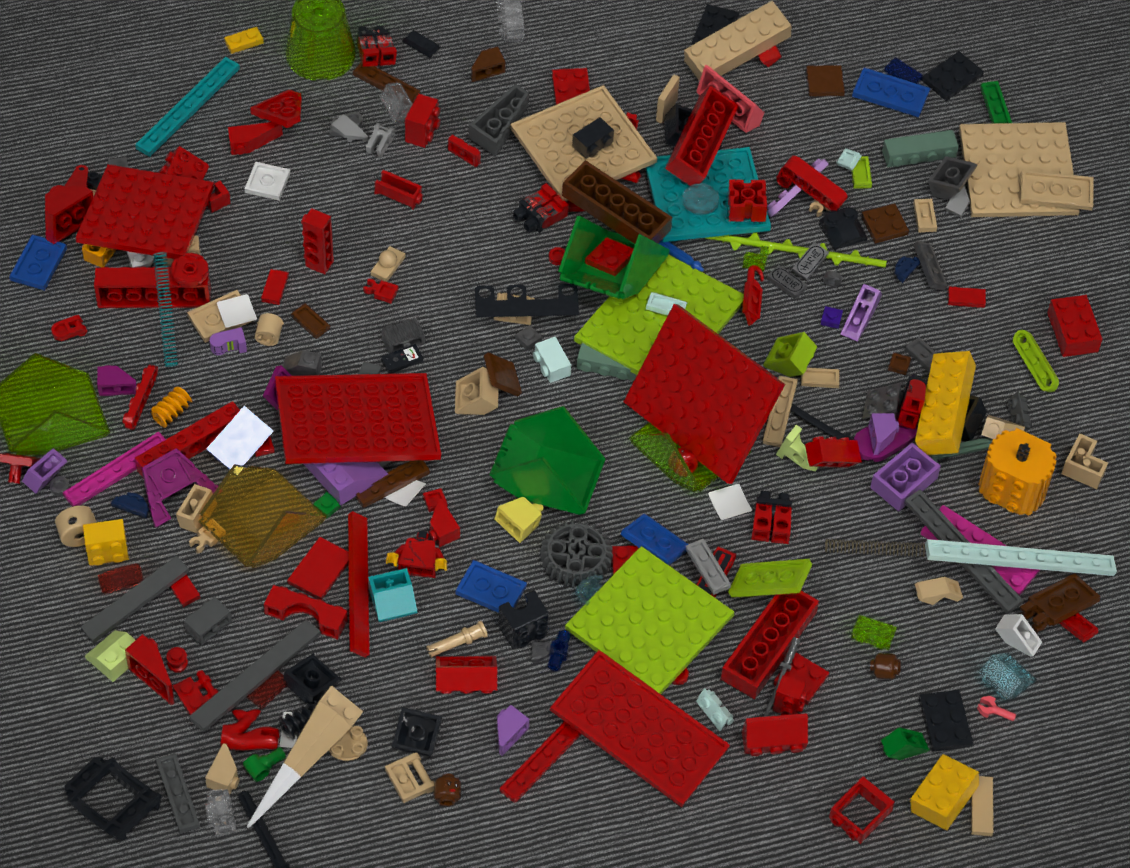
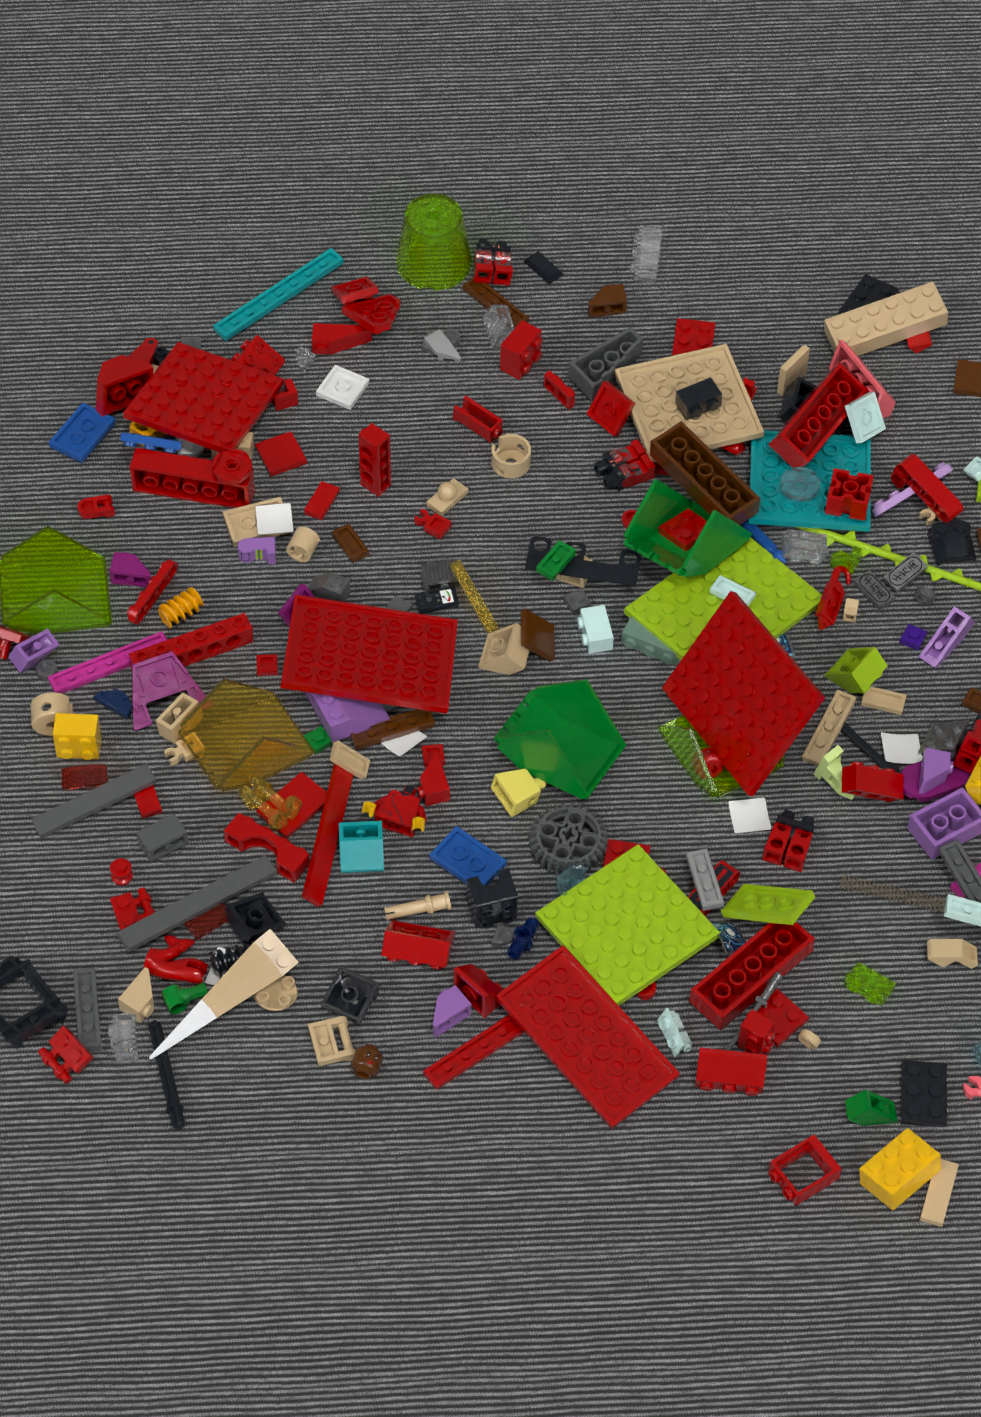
camera: 15 degrees right, 0 degrees up
(107, 260) = (150, 442): none -> blue plate
(110, 654) = (59, 855): yellowish green slope -> none
(146, 663) = (87, 870): red slope -> none
(164, 255) = (202, 446): teal piece -> none
(171, 832) = (70, 1049): none -> red plate
(226, 160) = (304, 358): none -> clear tile
(226, 250) = (280, 453): none -> red tile
(239, 439) = (243, 653): tile -> none
(244, 40) = (355, 233): yellow plate -> none
(257, 91) = (355, 290): none -> red plate
(289, 561) = (264, 791): none -> clear yellow piece
(362, 518) = (349, 760): none -> tan tile
(382, 135) = (476, 359): light grey piece -> none
(433, 212) = (507, 450): none -> tan piece
(436, 349) = (474, 596): none -> clear yellow axle
(503, 304) = (556, 560): none -> green plate
(515, 159) = (610, 408): none -> red tile
(531, 704) = (477, 988): none -> red slope
(655, 539) = (656, 840): blue tile -> none
(717, 253) = (804, 546): none -> clear brick
(742, 130) = (865, 417): none -> light aqua plate
(742, 613) = (729, 936): none -> dark blue sticker
(771, 303) = (850, 610): none -> tan piece
(835, 692) = (809, 1039): none -> tan tile
(847, 417) = (901, 748): none -> white sticker
(885, 666) = (872, 1022): reddish brown head -> none

